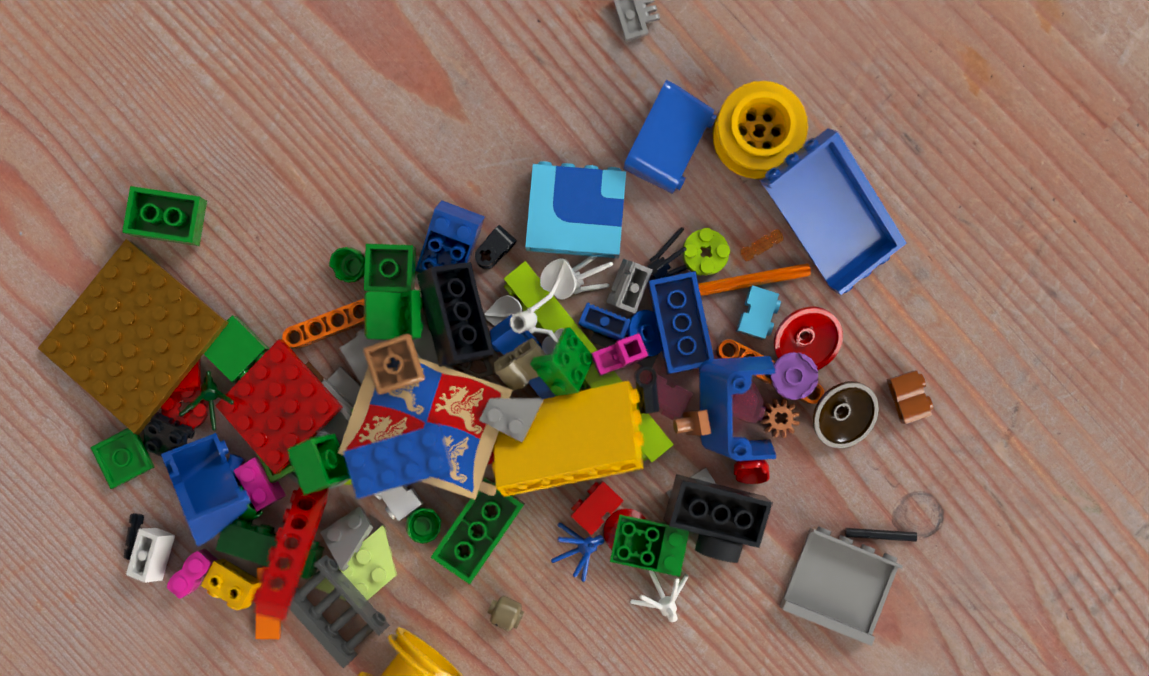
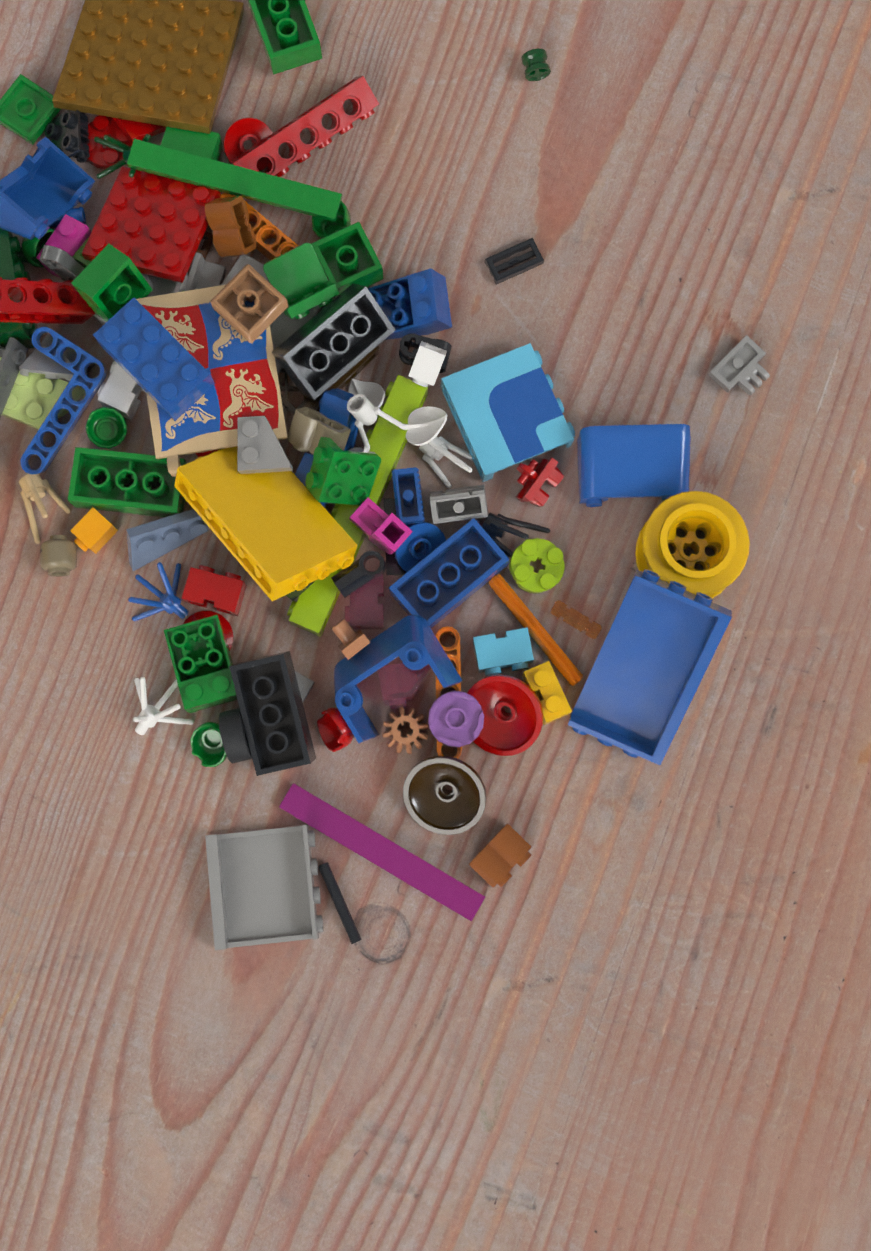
camera: 60 degrees right, 5 degrees down
(258, 288) = (243, 130): none -> red dish
(259, 259) = (355, 91): none -> red brick
(279, 323) = (234, 180): none -> green tile
(281, 492) = (60, 262): none -> dark grey beam
(306, 36) = (535, 64): none -> dark green wheel
(315, 345) = (230, 226): none -> dark orange brick
(388, 546) = (65, 401): none -> blue beam
(440, 606) = (34, 489): none -> tan plant
(448, 119) = (498, 278): none -> black tile
(500, 577) = (93, 531): none -> light orange brick
(509, 251) = (427, 364): none -> white brick
(533, 526) = (161, 536): none -> sand blue wing
(638, 217) = (545, 472): none -> red hips
(713, 571) = (208, 745): none -> green hair
(797, 295) = (546, 685): none -> yellow brick
(859, 483) = (382, 852): none -> magenta tile

